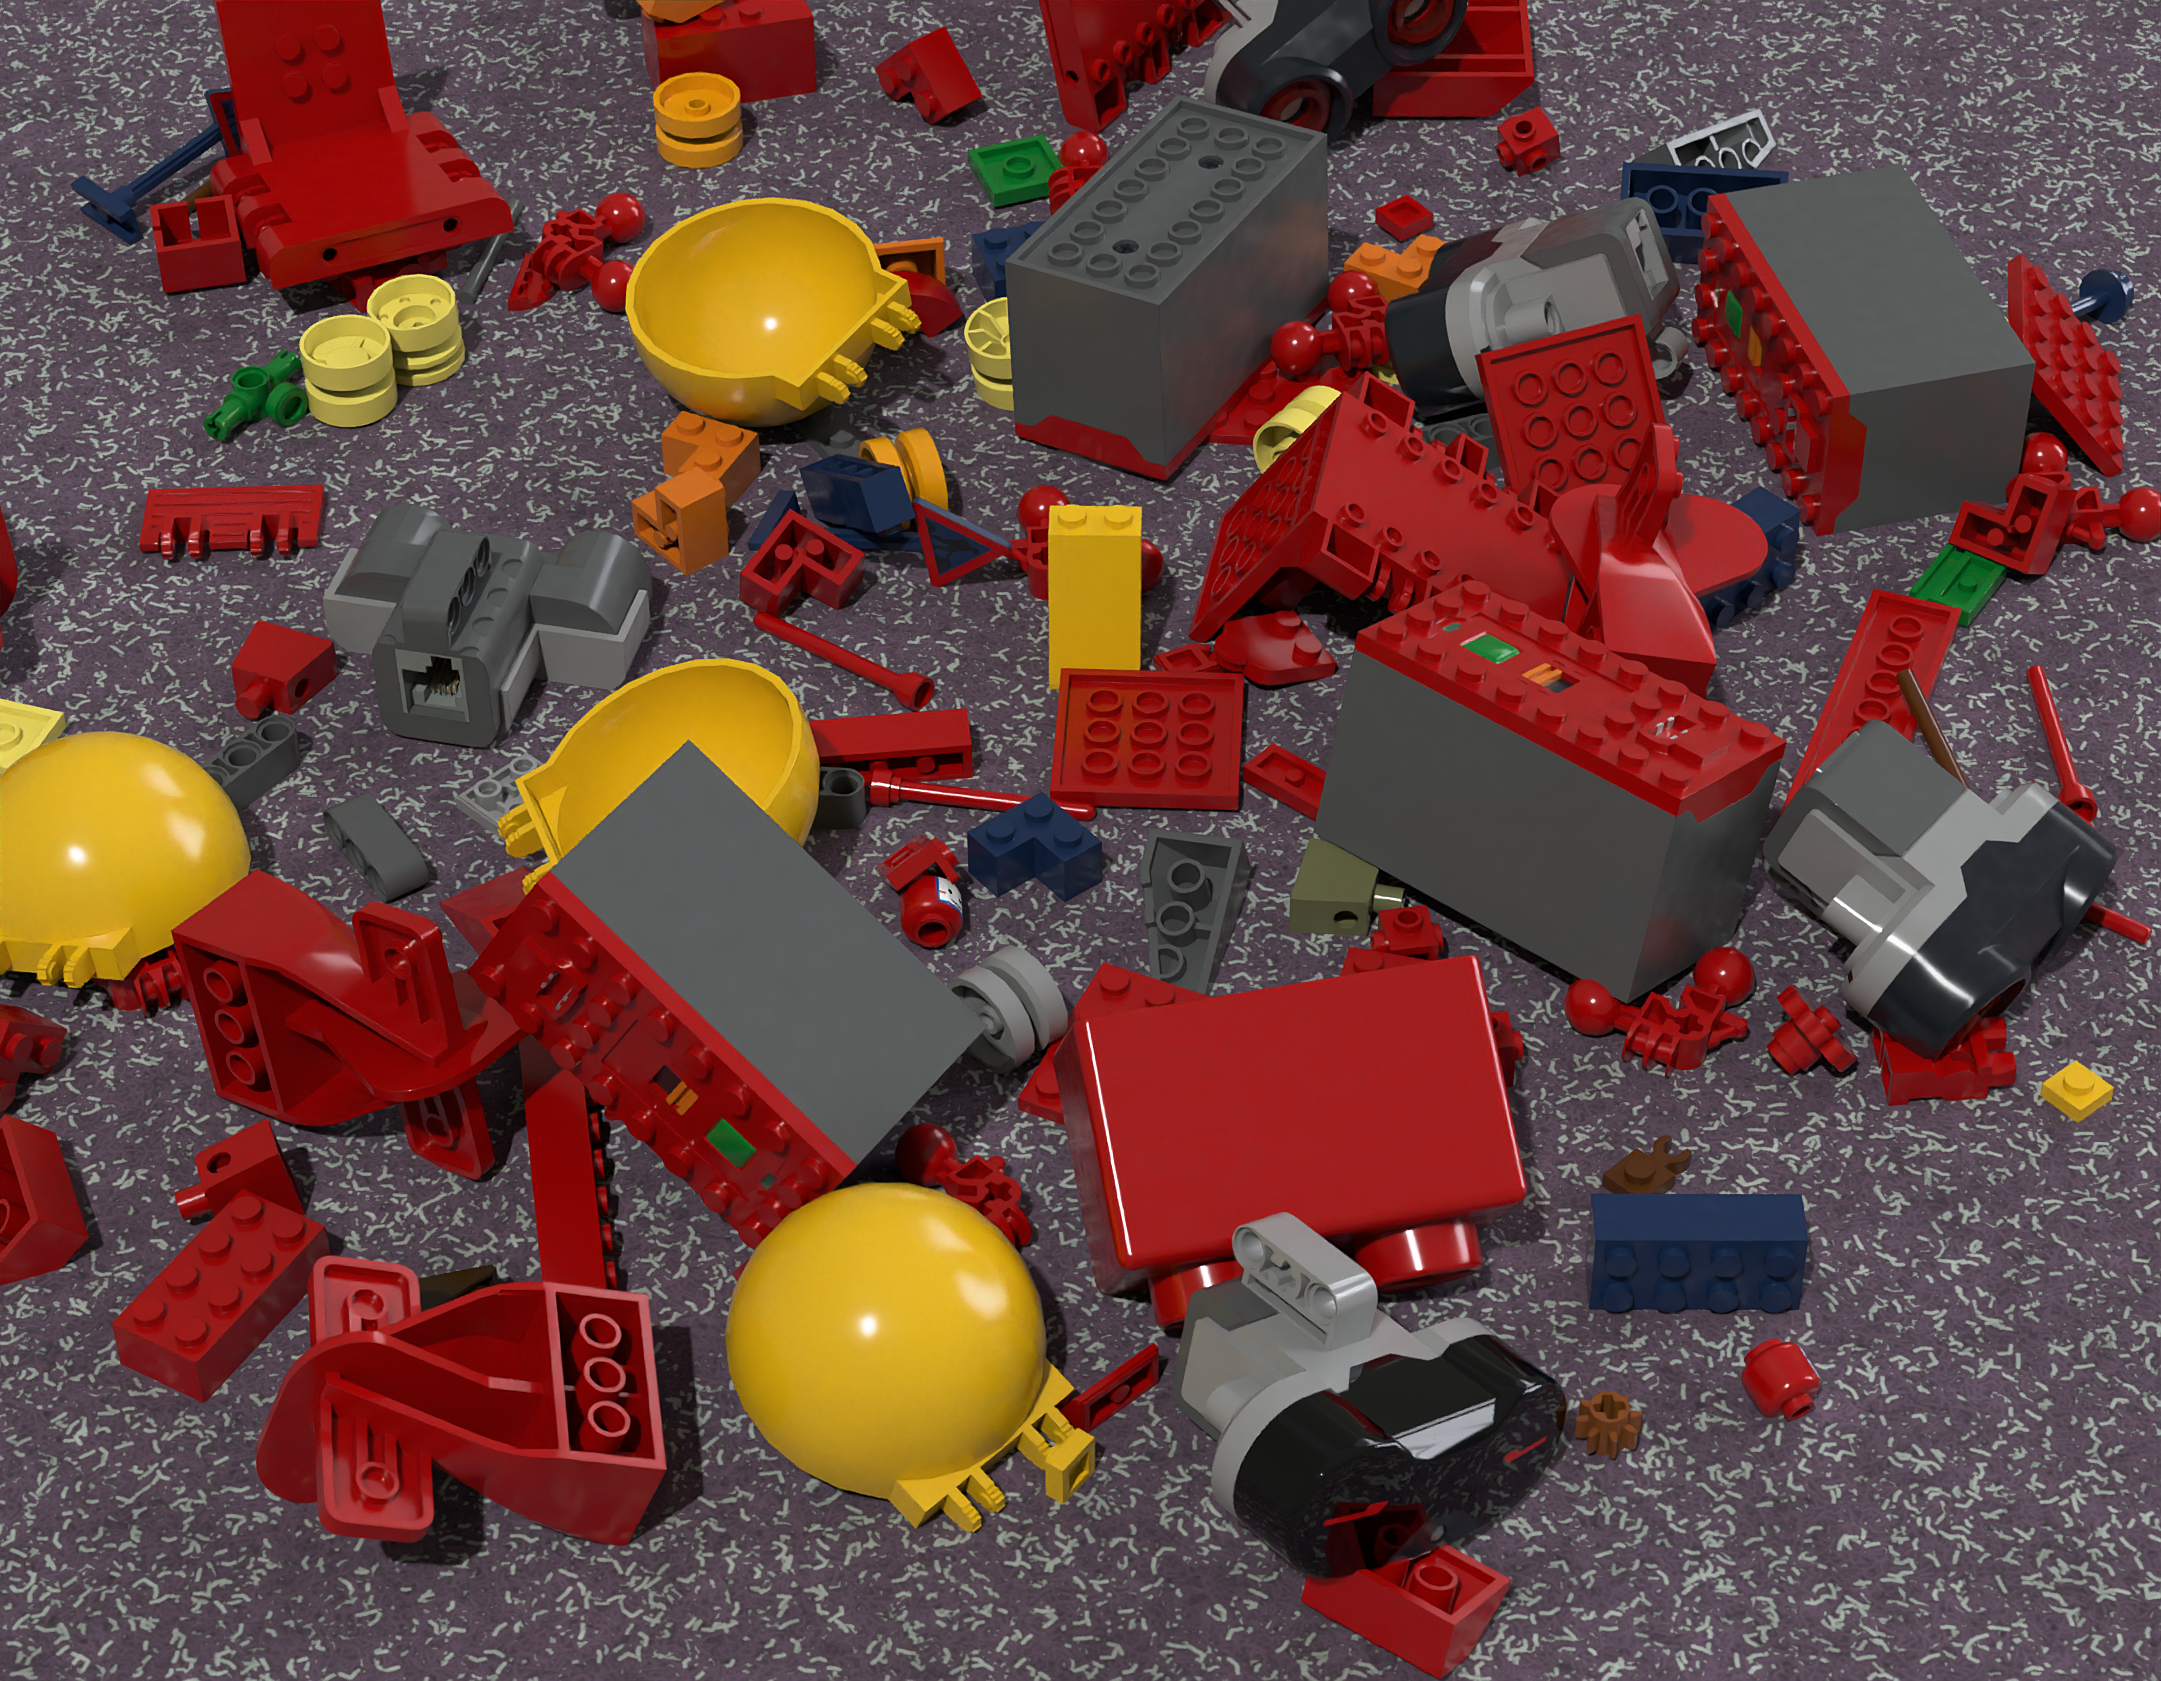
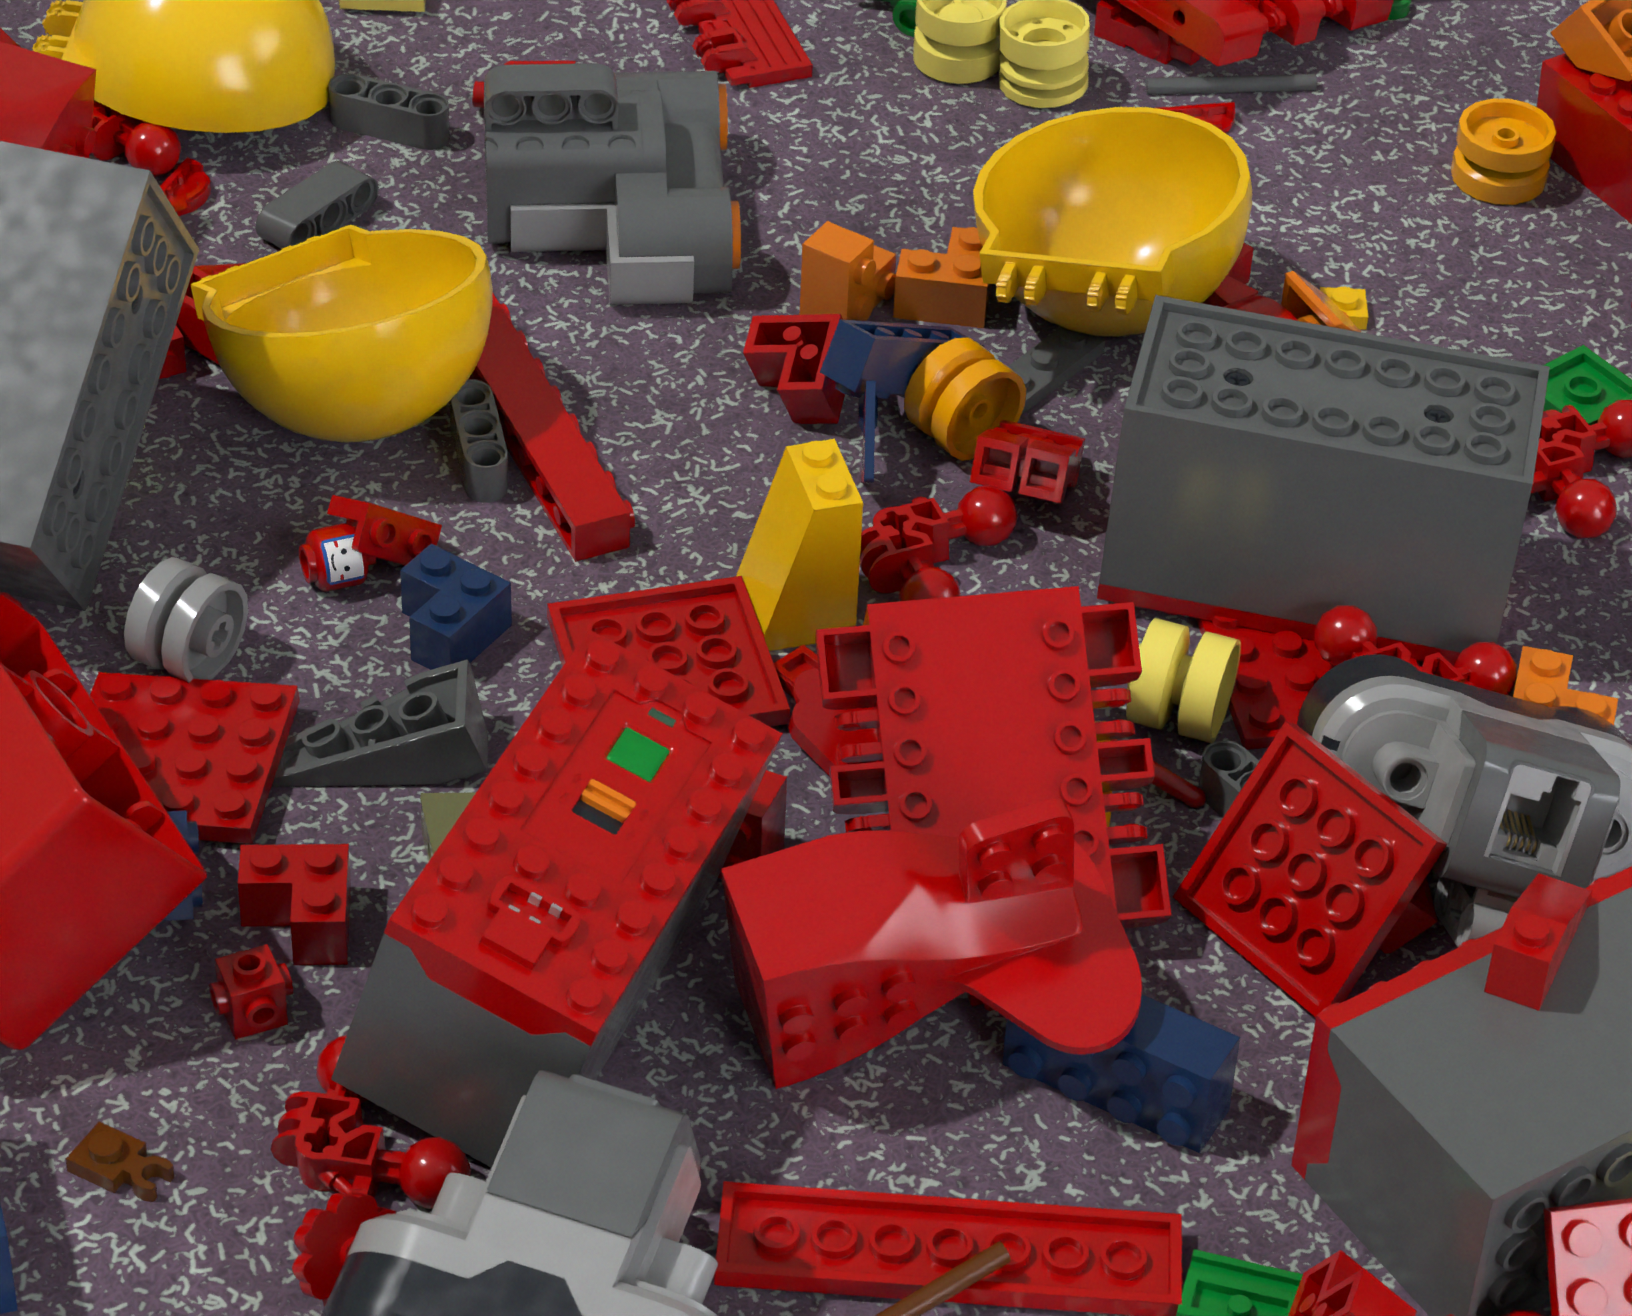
camera: 70 degrees right, 0 degrees up
(574, 249) = (1257, 118): red piece -> none
(891, 788) = (520, 501): red piece -> none
(910, 689) = (676, 485): red piece -> none
(1000, 464) = (1041, 456): none -> red hips
(1407, 933) = (379, 894): red brick -> none
(1805, 267) = (1535, 940): none -> red slope

